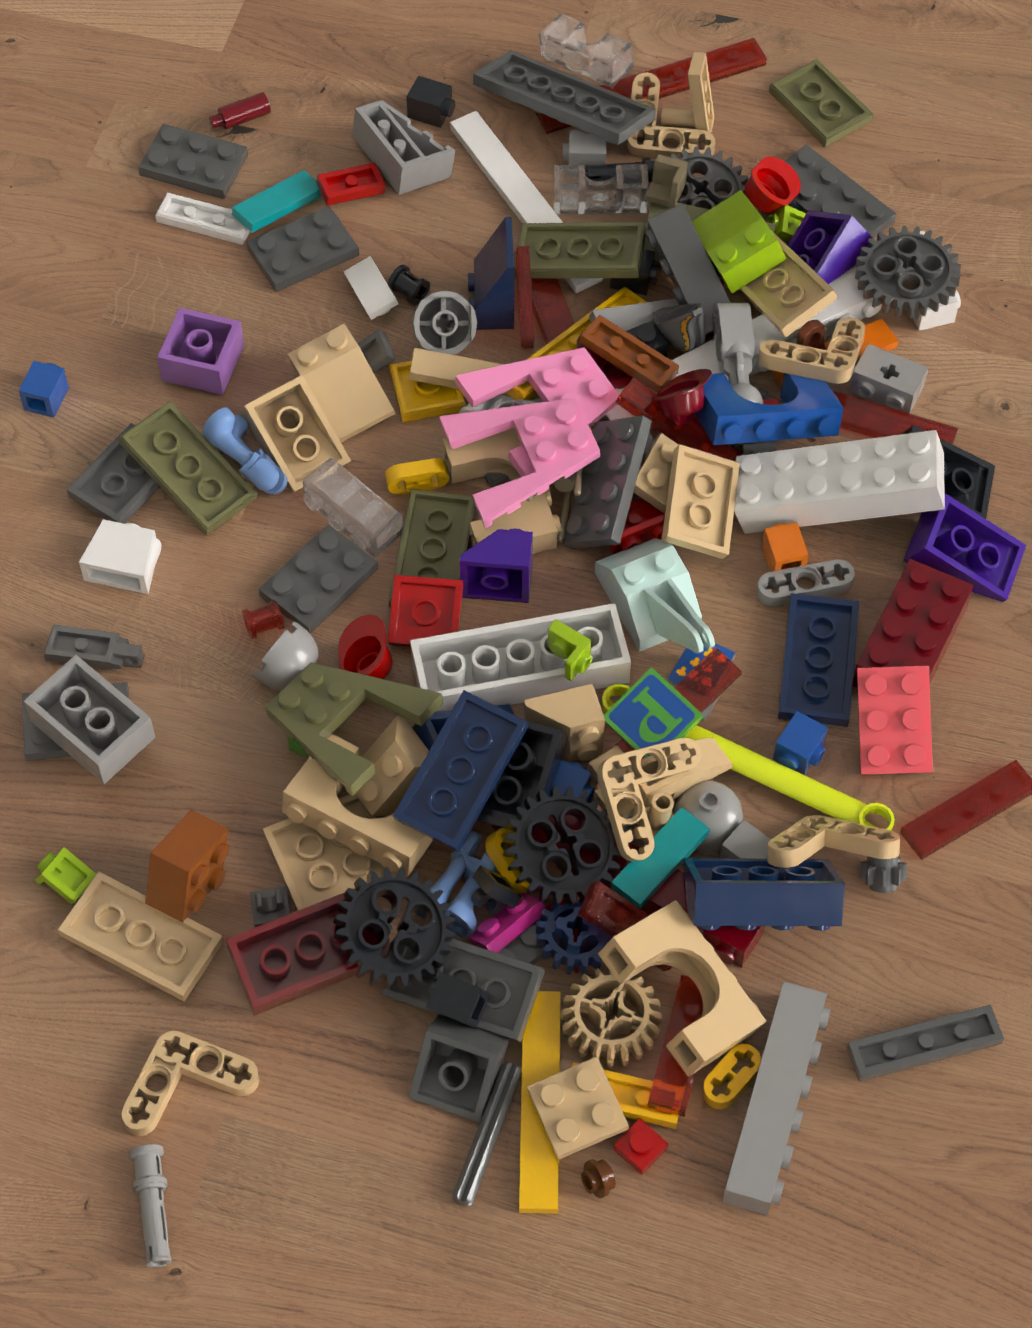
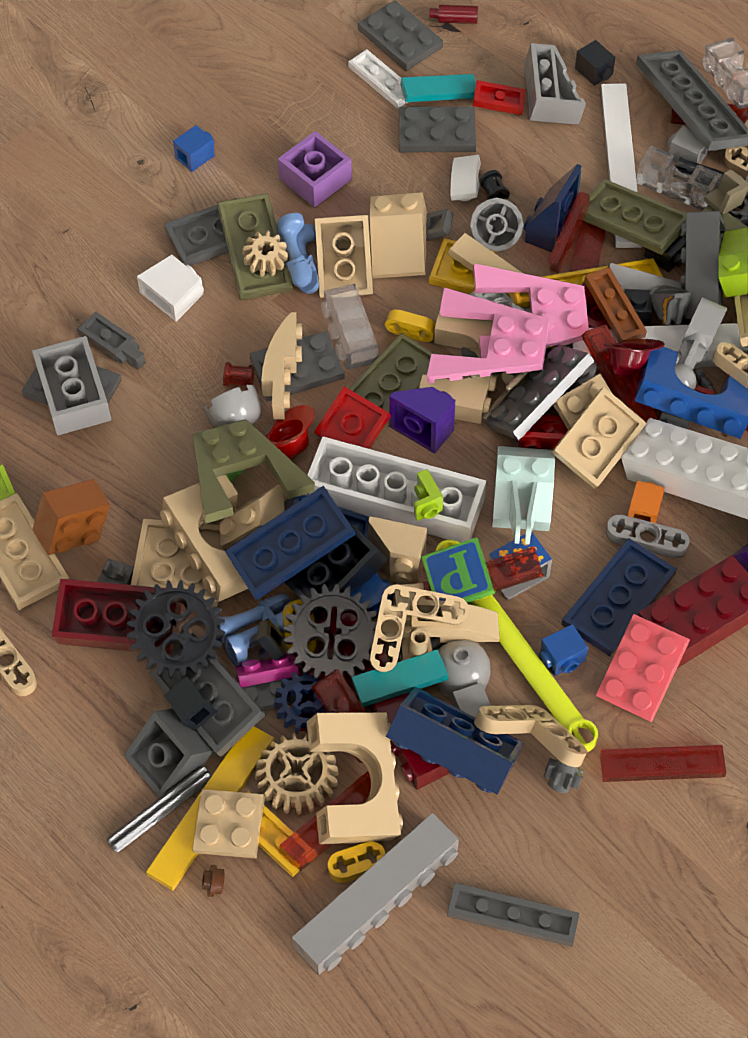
camera: 30 degrees right, 0 degrees up
(198, 468) = (265, 244): none -> tan gear
(309, 585) = (280, 362): none -> tan slope
(640, 1146) = (260, 876): red plate -> none

